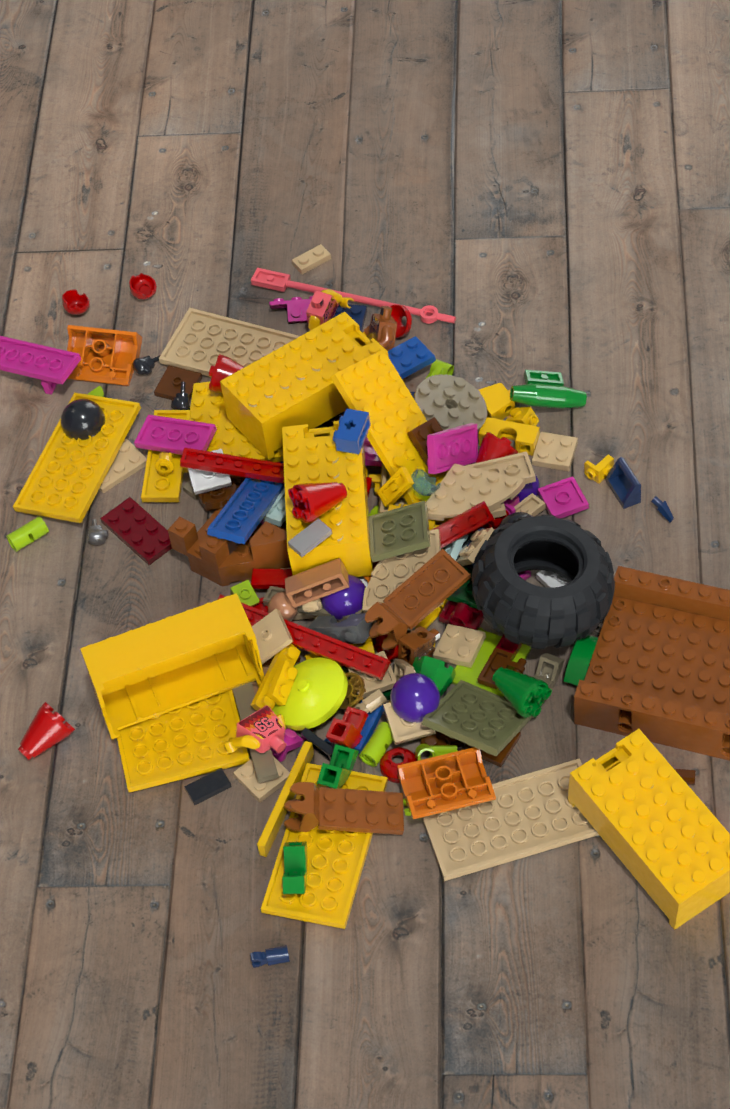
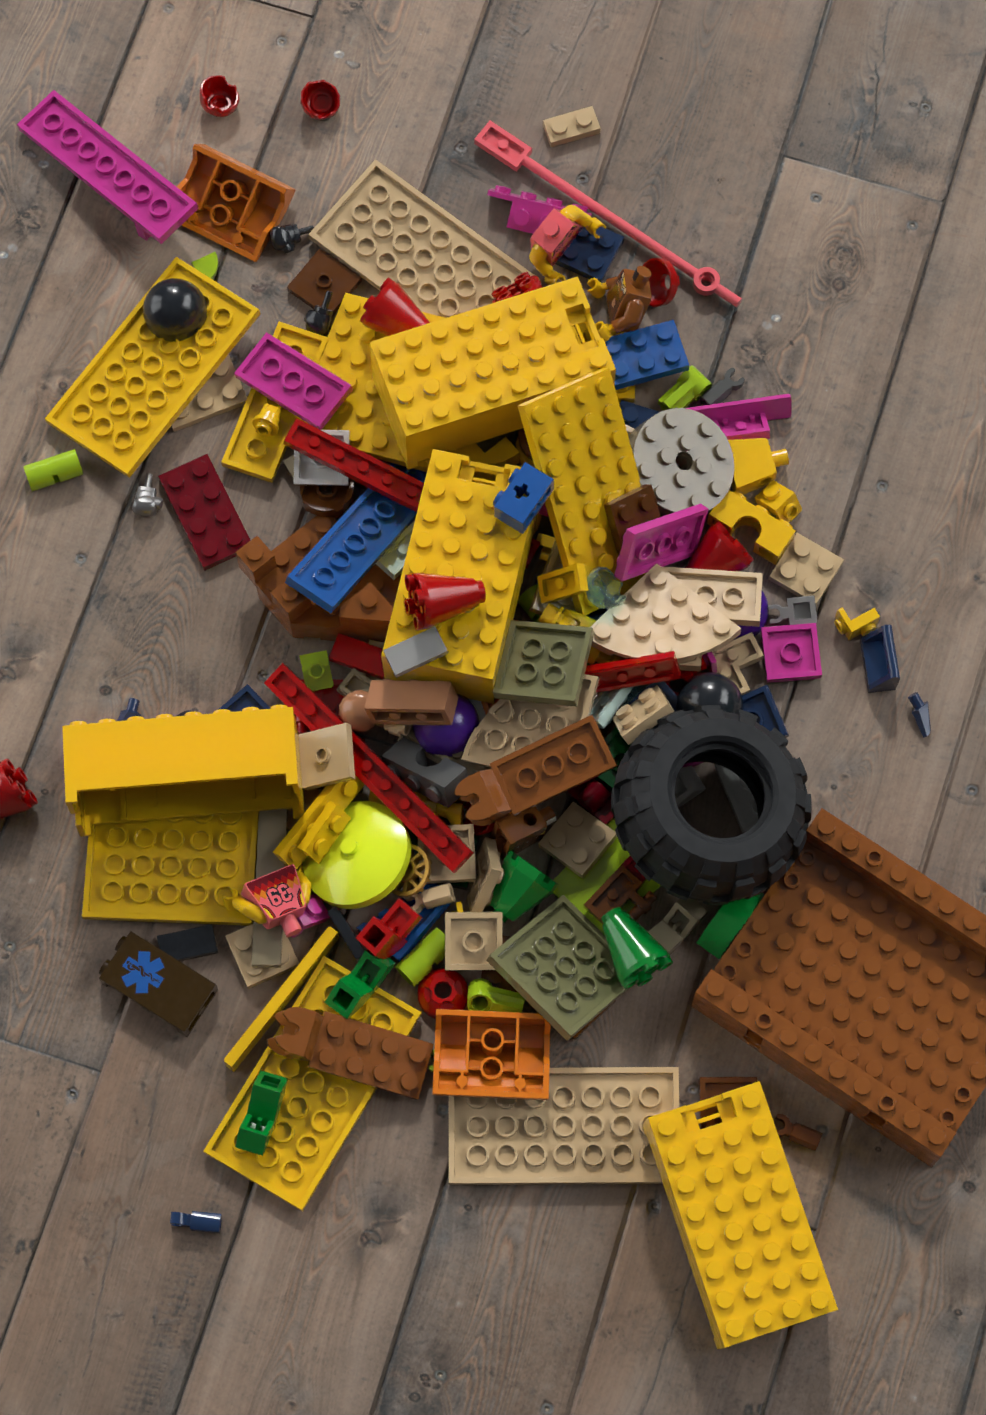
camera: 10 degrees right, 20 degrees up
(195, 812) = (158, 982): none -> dark brown panel
(414, 697) = (489, 917): dark purple piece -> none
(462, 367) = (721, 389): none -> dark grey bar
(488, 373) = (748, 417): none -> dark pink bracket
(547, 391) = (826, 470): green plate -> none
(557, 473) = (799, 610): none -> light grey plate

